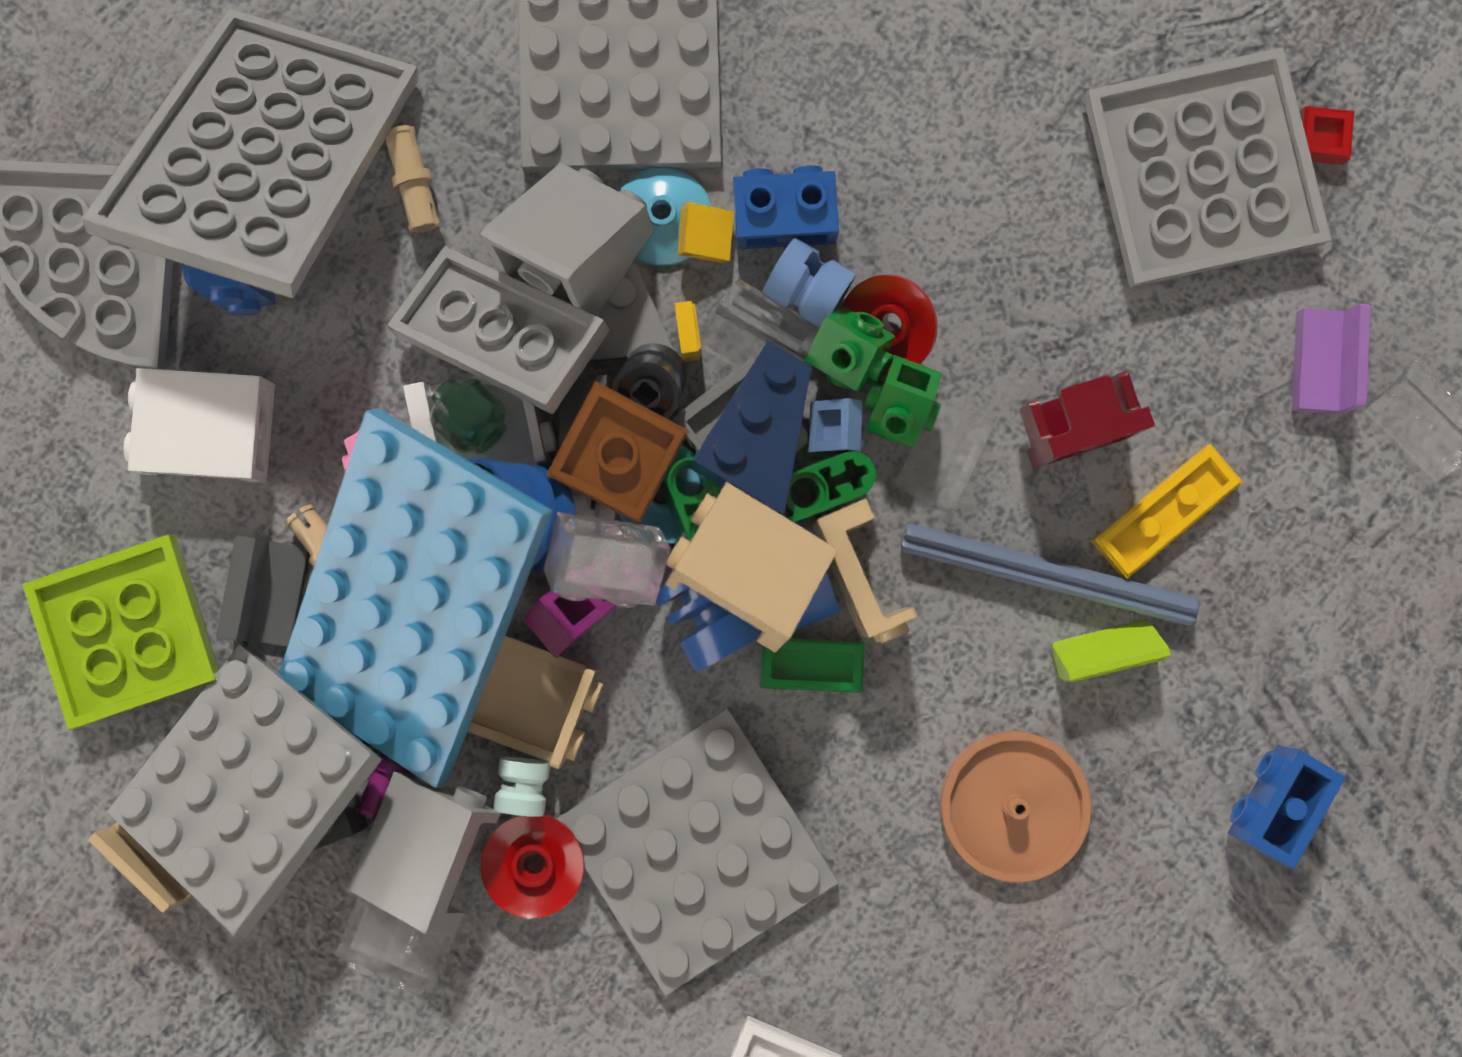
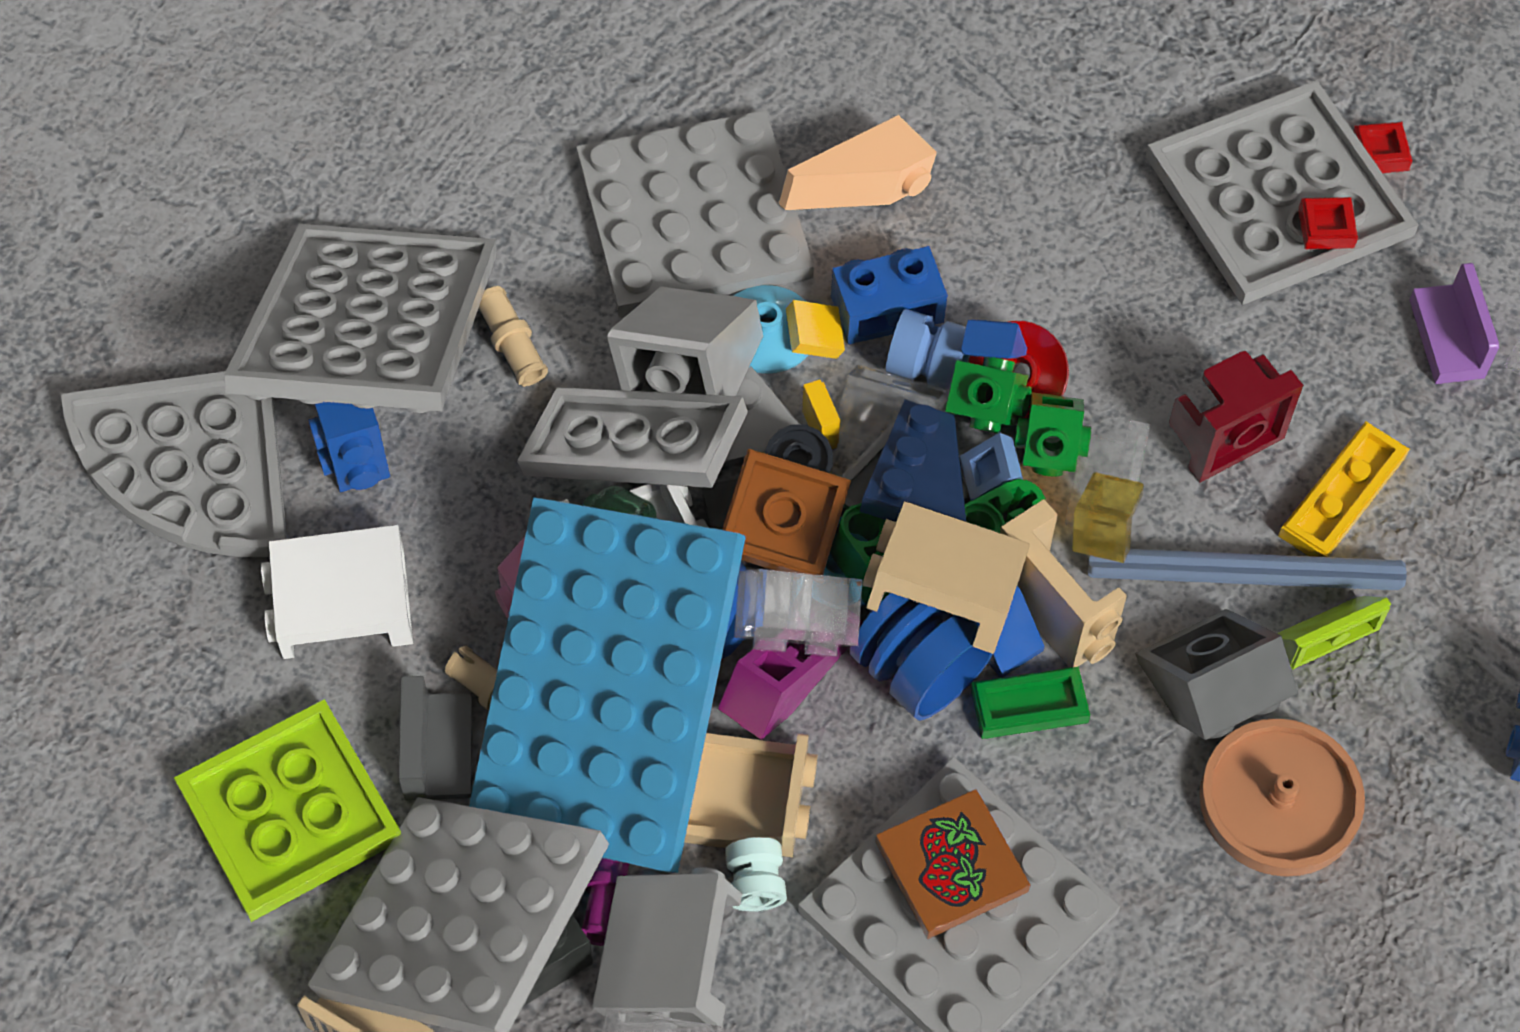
camera: 15 degrees left, 25 degrees down
(516, 886) = (788, 926): red dish -> none
(695, 822) = (952, 863): none -> dark orange tile
(794, 65) = (862, 171): none -> light nougat slope
(865, 304) = (993, 339): none -> blue slope
(929, 506) = (1105, 517): none -> clear yellow panel
(991, 678) = (1219, 673): none -> dark grey slope
(1241, 222) = (1328, 223): none -> red tile

